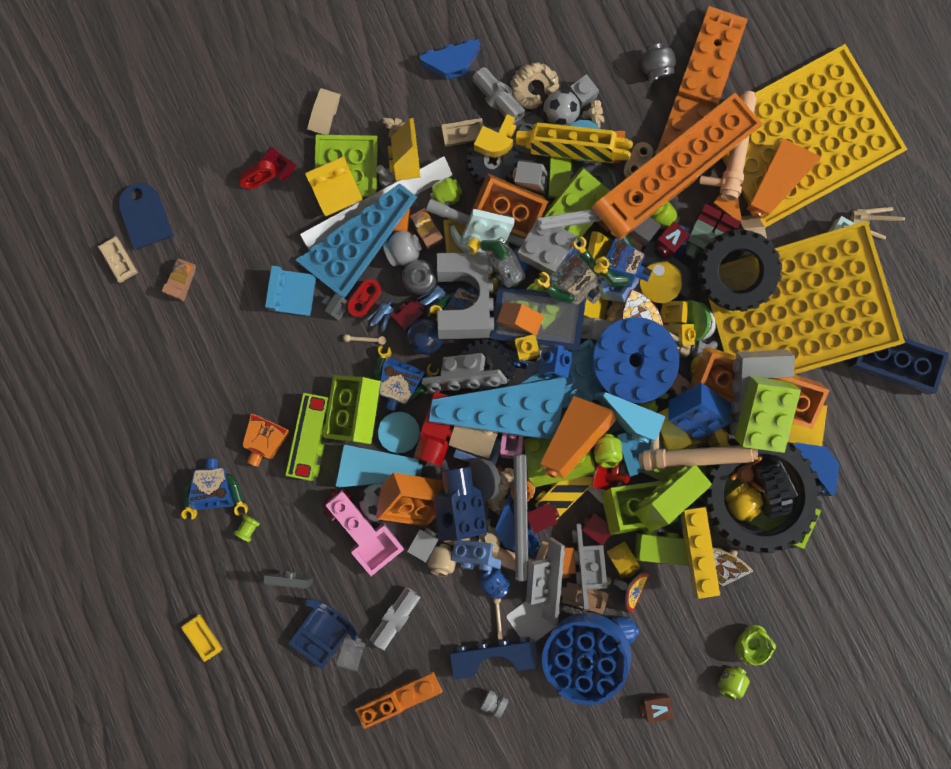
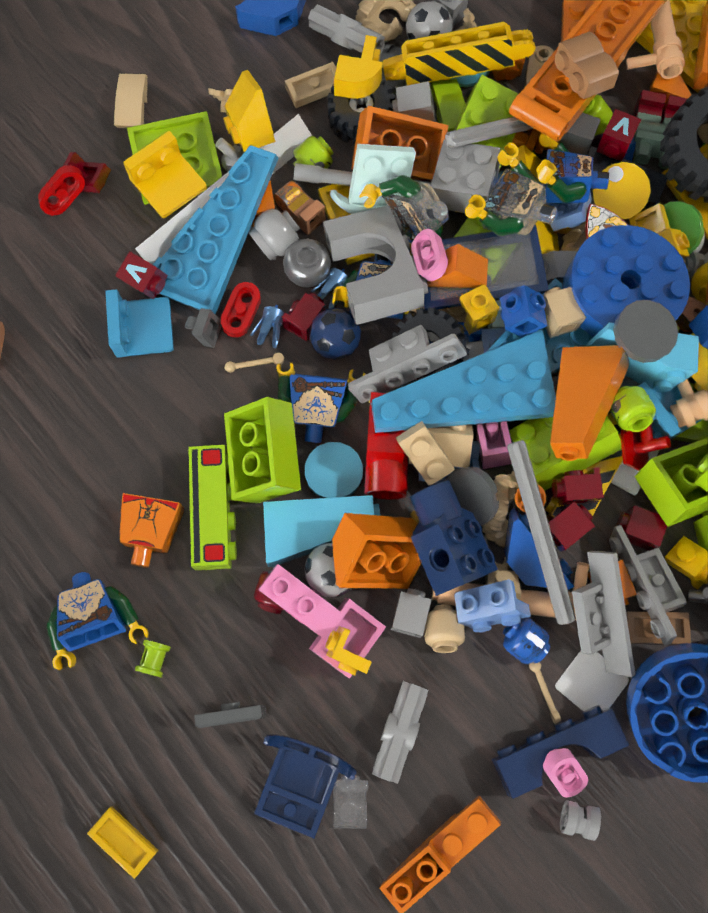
camera: 15 degrees left, 10 degrees down
(300, 258) = (142, 275): none -> dark red brick
(371, 565) = (348, 661): none -> yellow bracket
(459, 444) = (425, 453): none -> tan plate
(492, 672) = (565, 772): none -> bright pink plate
(501, 304) = (429, 255): none -> bright pink plate
(557, 493) = (578, 487): none -> dark red brick
(582, 367) = (562, 312): none -> tan brick
(627, 405) = (645, 331): none -> dark grey tile
(654, 191) = (586, 65): none -> medium nougat brick

